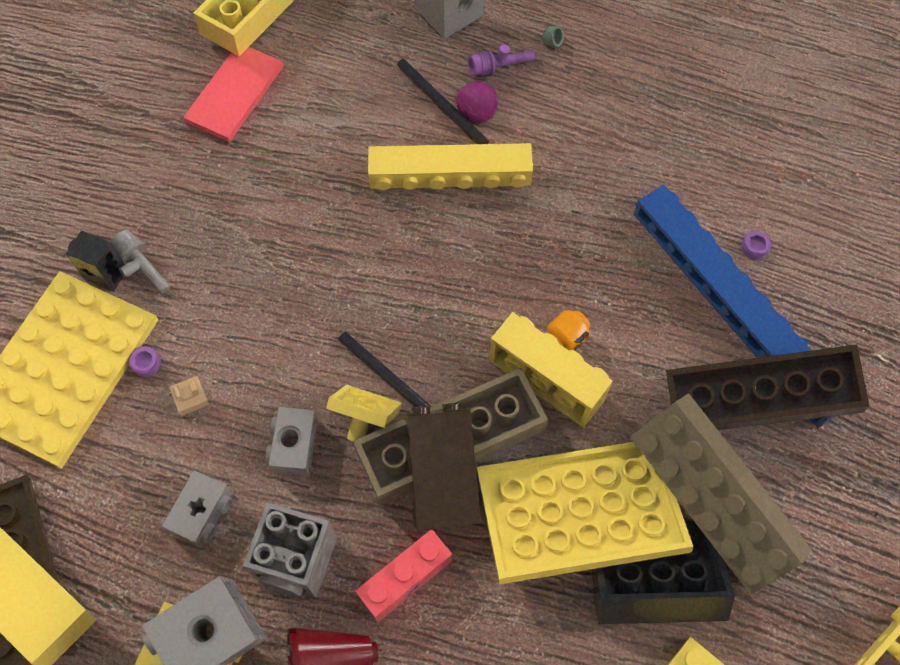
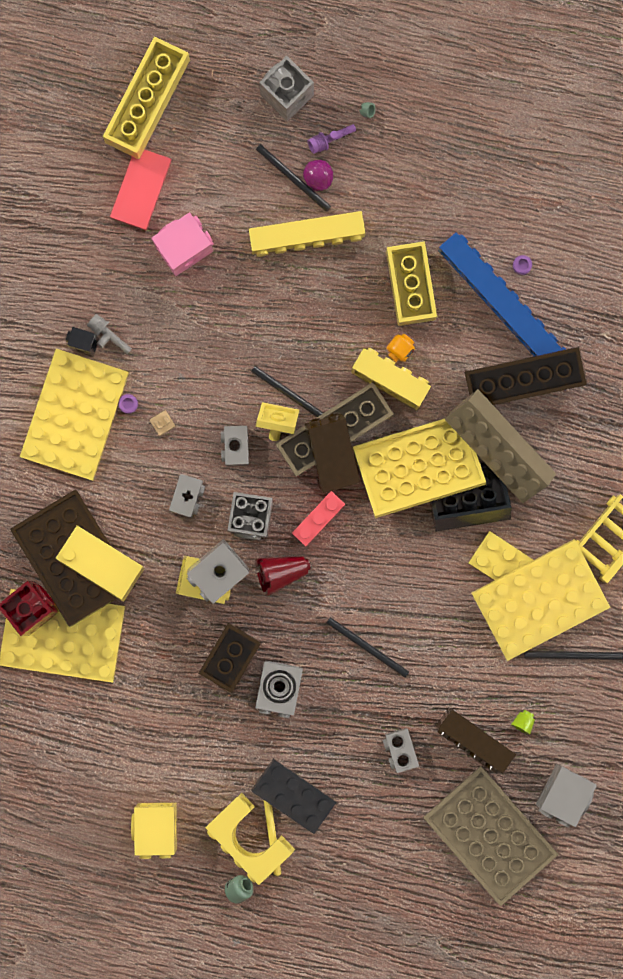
camera: 10 degrees left, 20 degrees up
(273, 154) = (183, 243): none -> bright pink brick
(593, 245) = (411, 283): none -> light yellow brick

